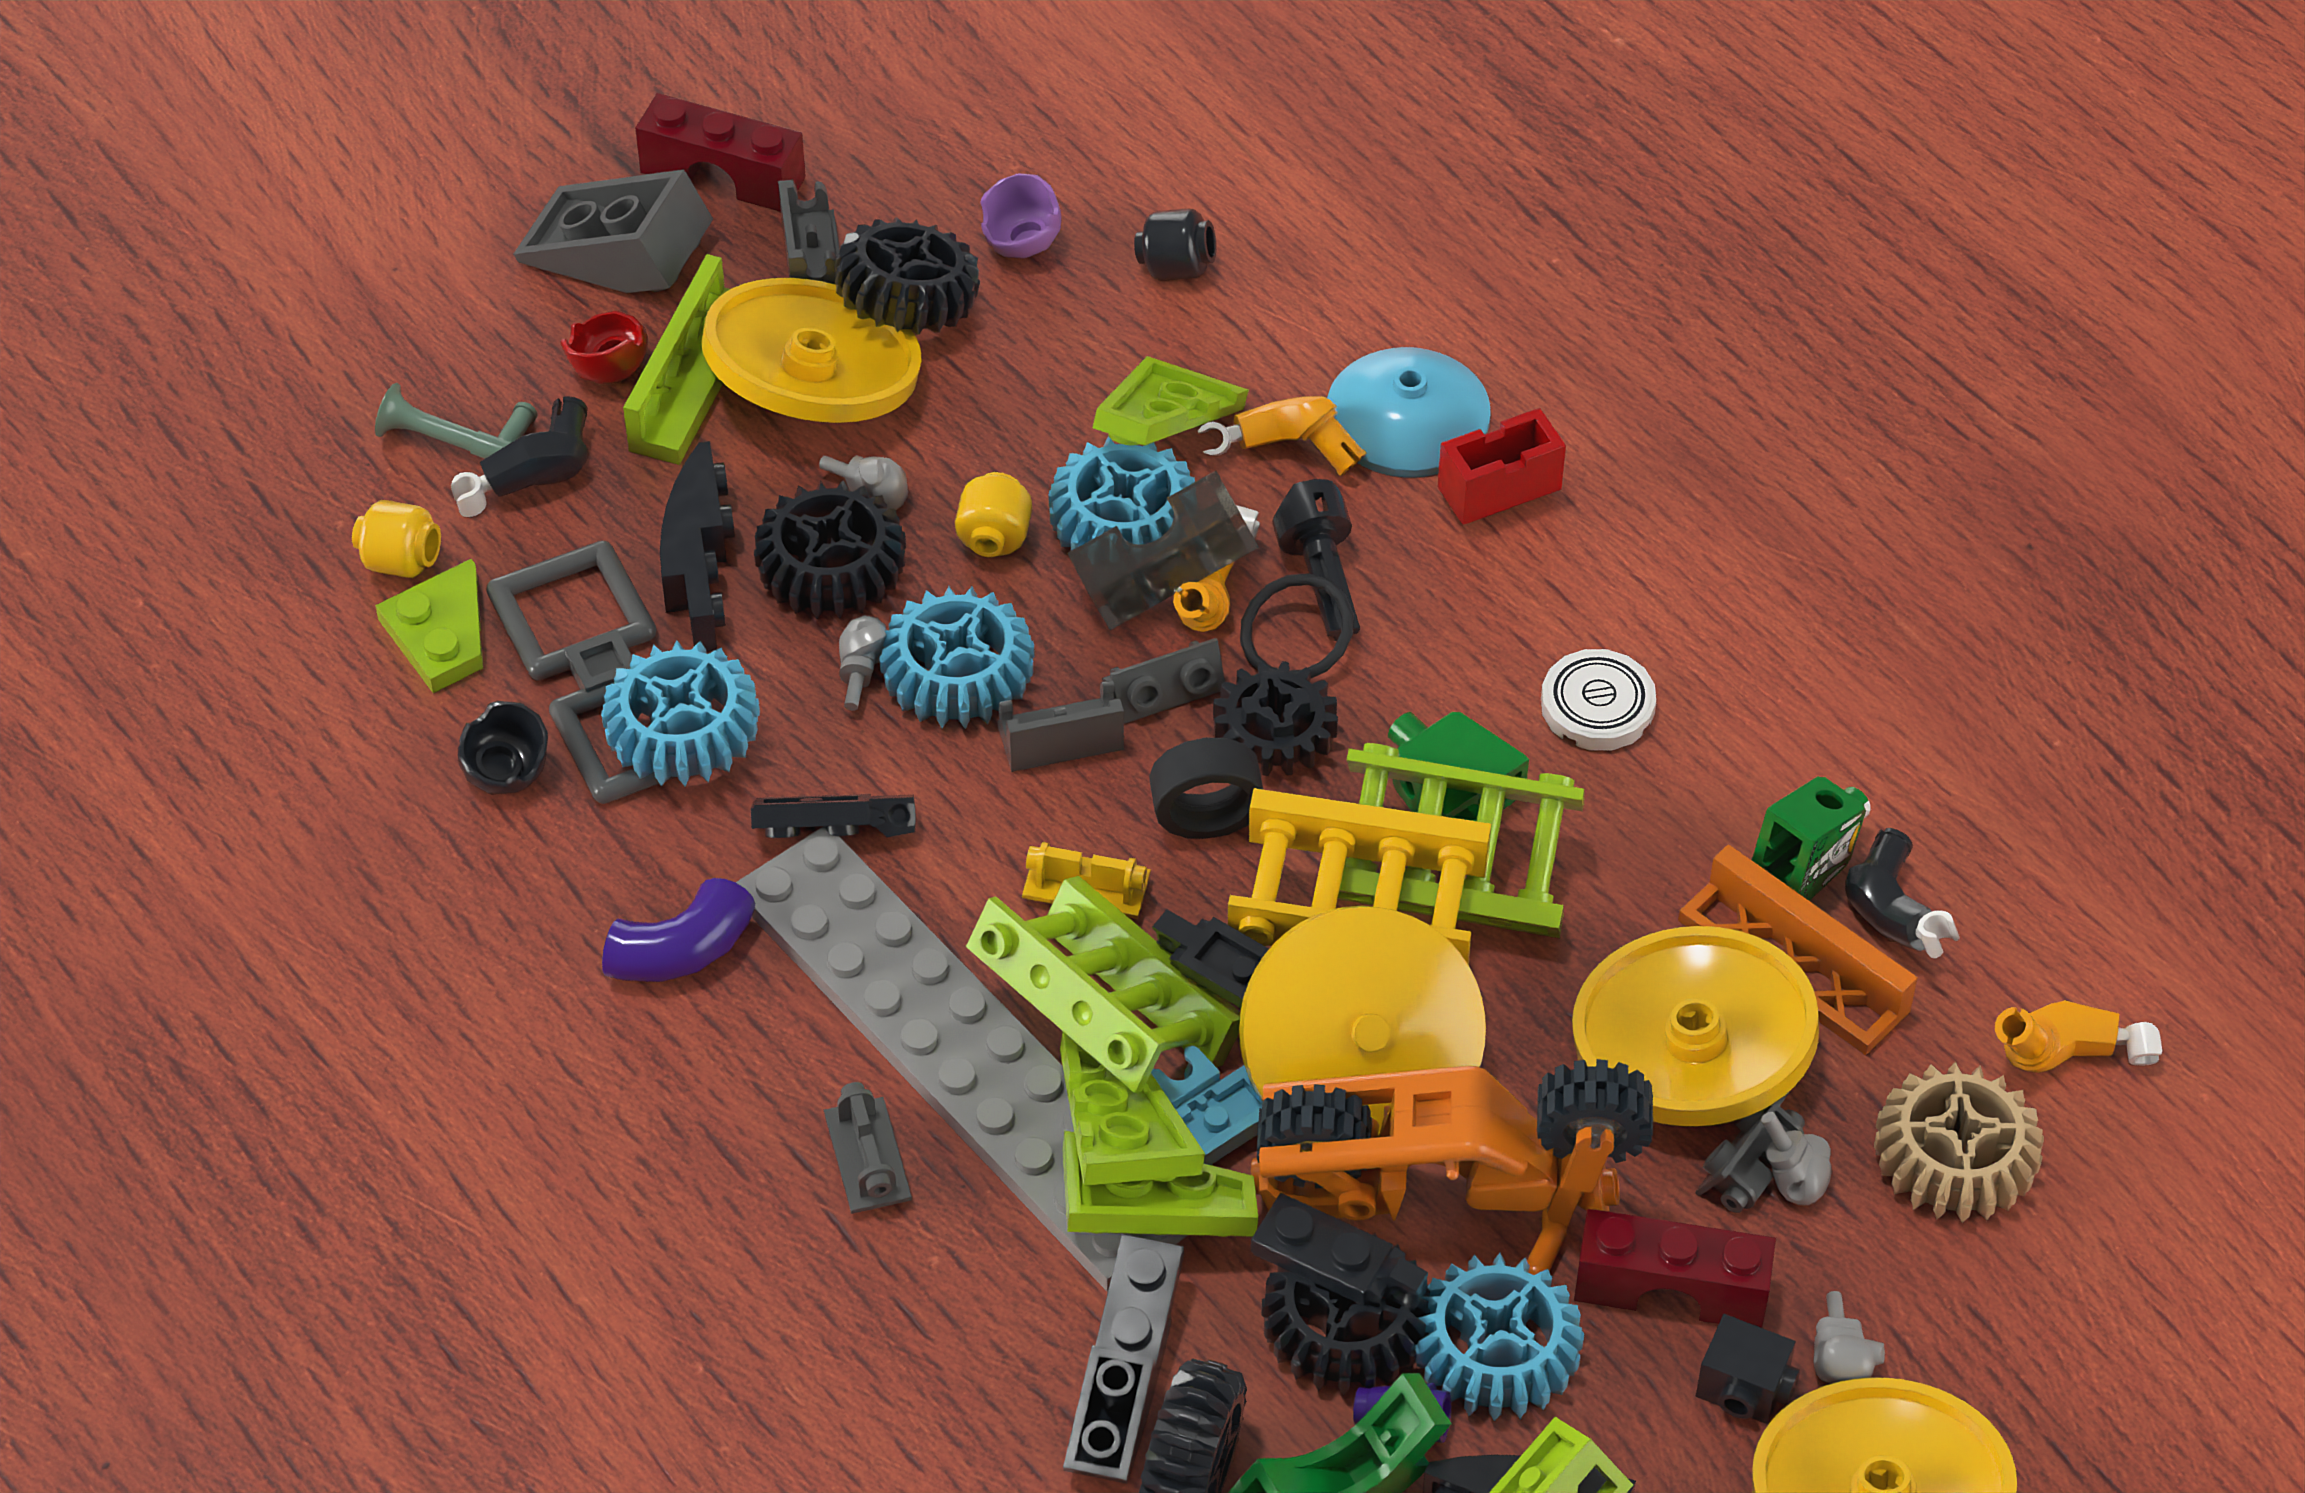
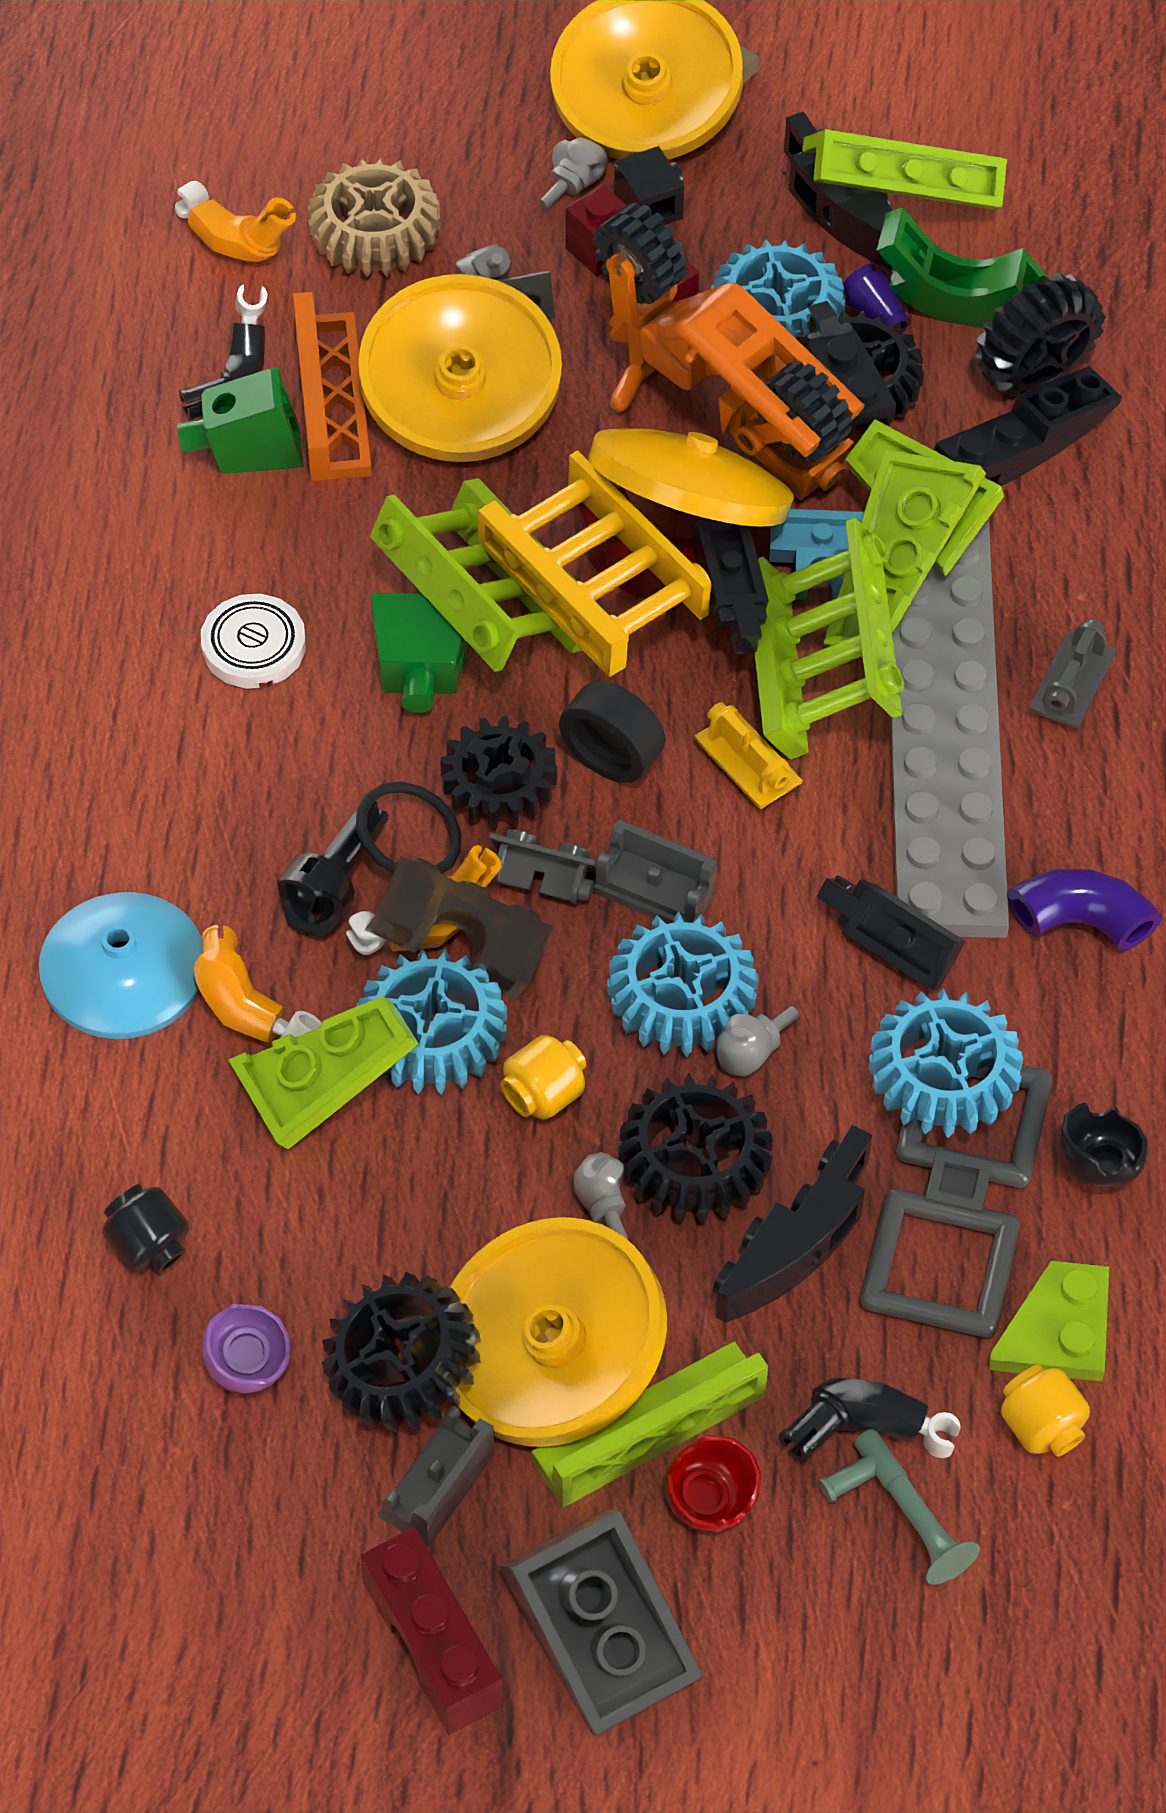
camera: 140 degrees left, 5 degrees up
(1501, 468) = (129, 829): red brick -> none

